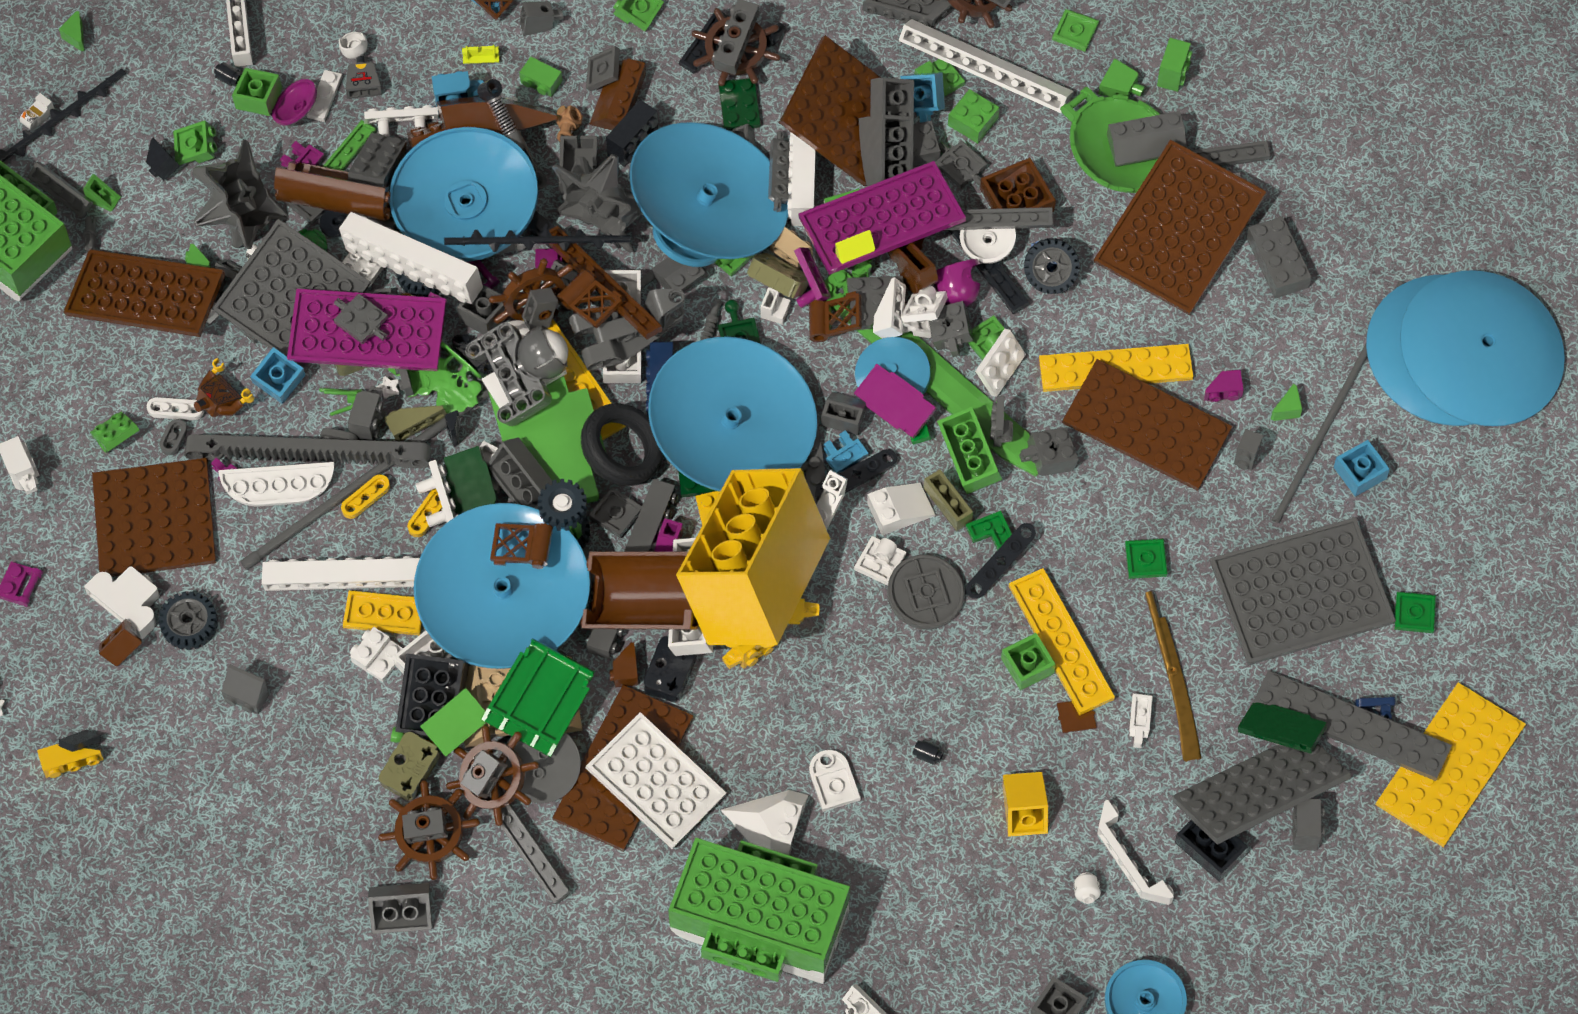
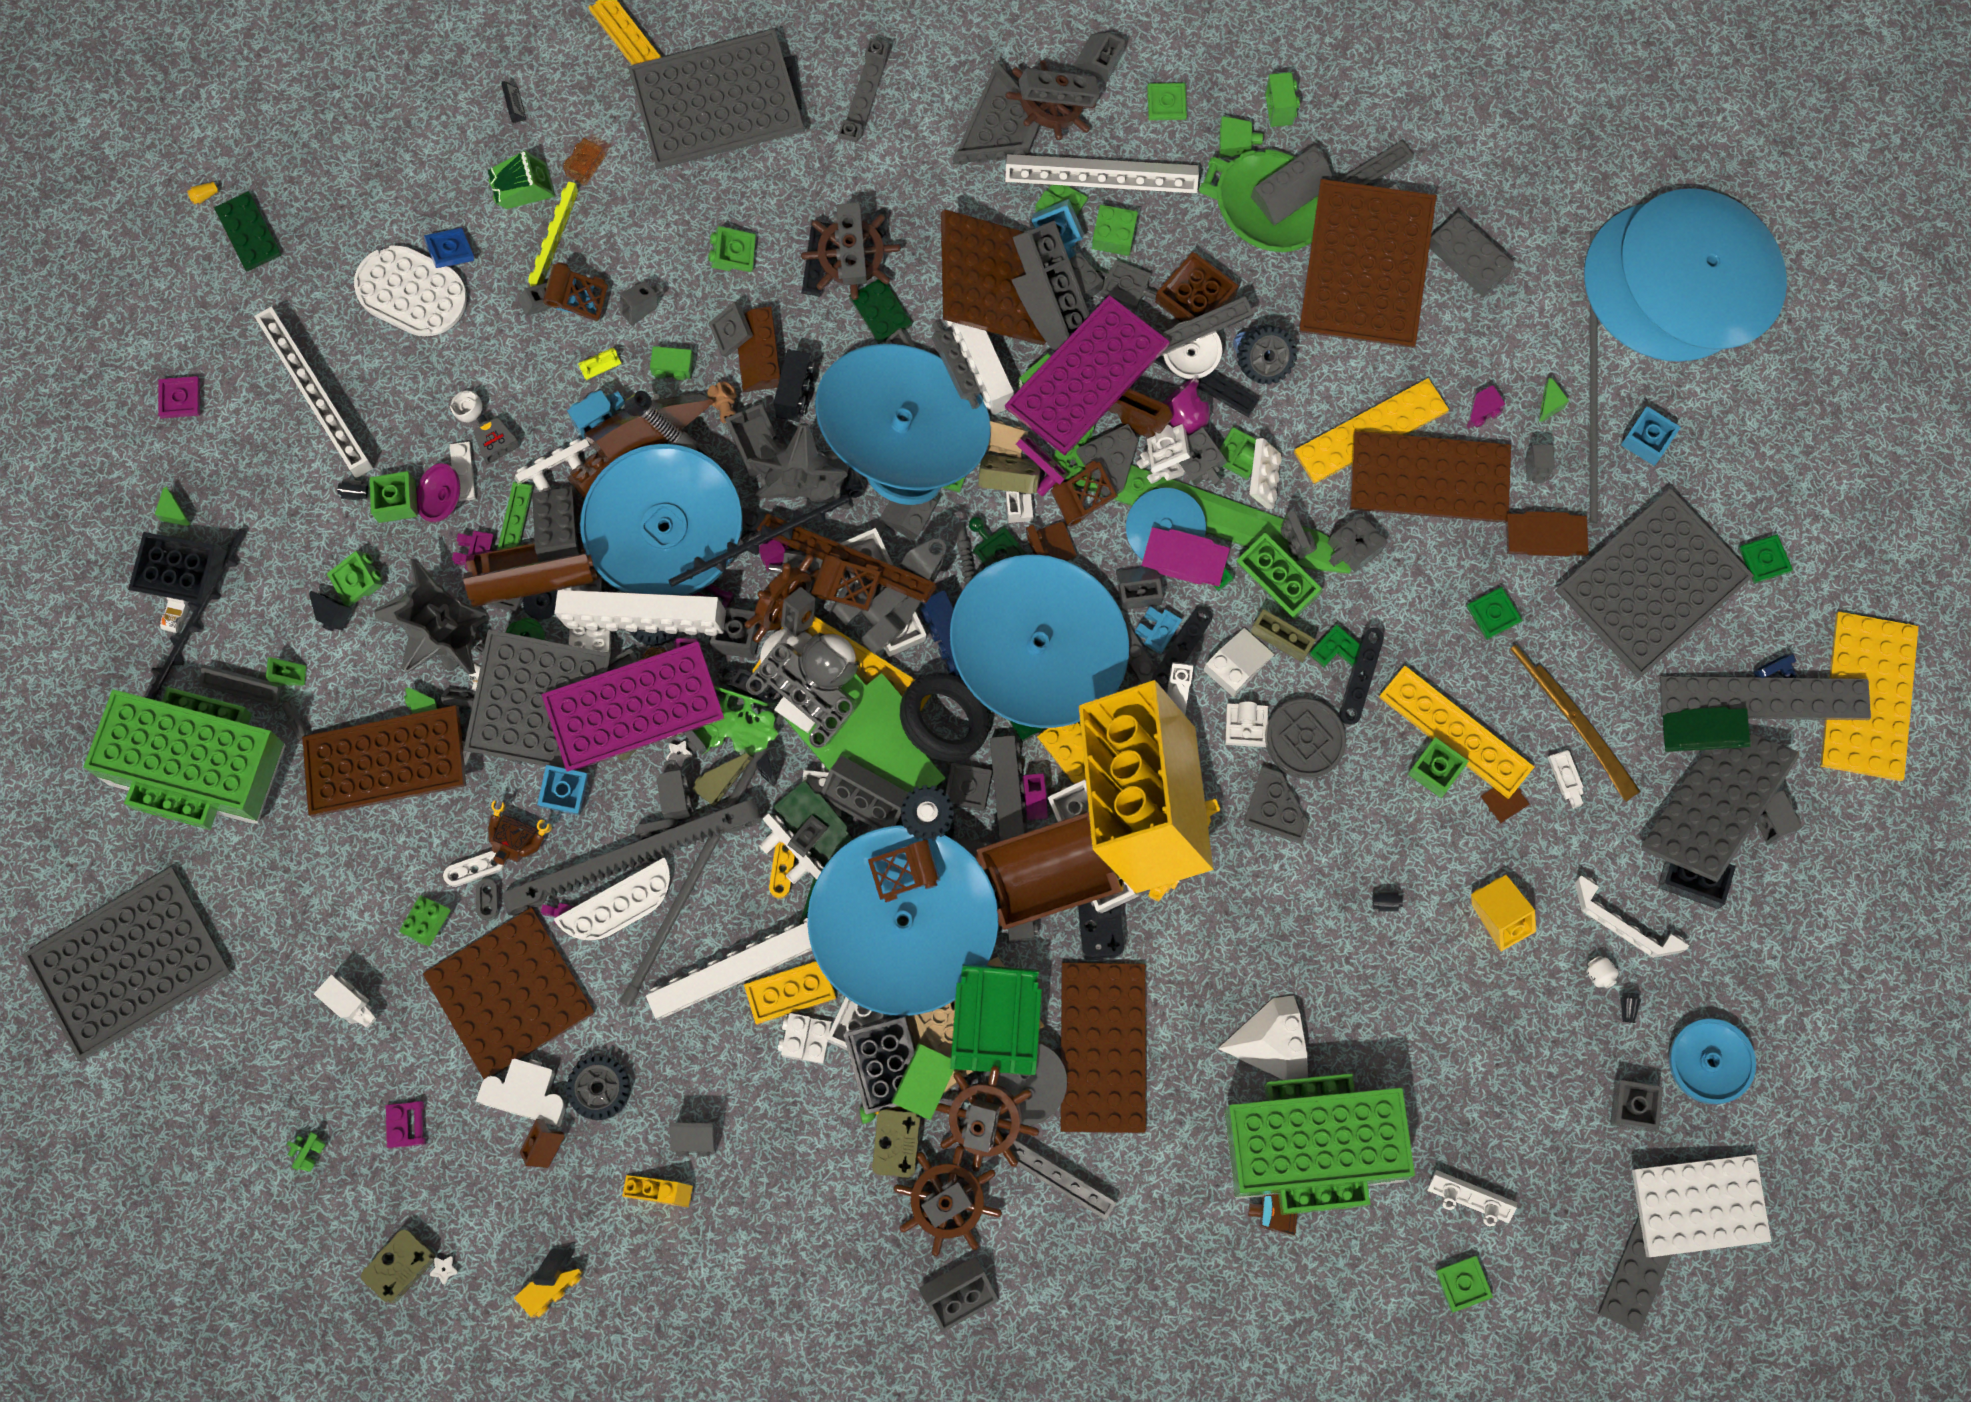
camera: 25 degrees left, 10 degrees up
(55, 76) = (176, 568): none -> black slope
(196, 721) = (657, 1191): none -> yellow slope
(351, 394) = (648, 778): bright green plant -> none
(360, 319) = (623, 699): dark grey plate -> none
(368, 489) = (715, 869): yellow plate -> none
(458, 490) = (807, 836): none -> dark grey plate
(625, 668) = (1057, 945): reddish brown slope -> none
(644, 233) = (854, 484): none -> black cone
(656, 780) = (1145, 1050): white plate -> none
(698, 967) = (1271, 1217): none -> reddish brown torso
(789, 345) = (1051, 541): none -> reddish brown bracket
(833, 782) = (1311, 970): white tile -> none
(855, 247) = (1080, 418): neon yellow slope -> none
(870, 638) = (1275, 808): none -> dark grey plate
(888, 315) = (1137, 467): white slope -> none
(1097, 926) = (1629, 1006): none -> black cone
(1226, 512) = (1547, 534): none -> reddish brown piece

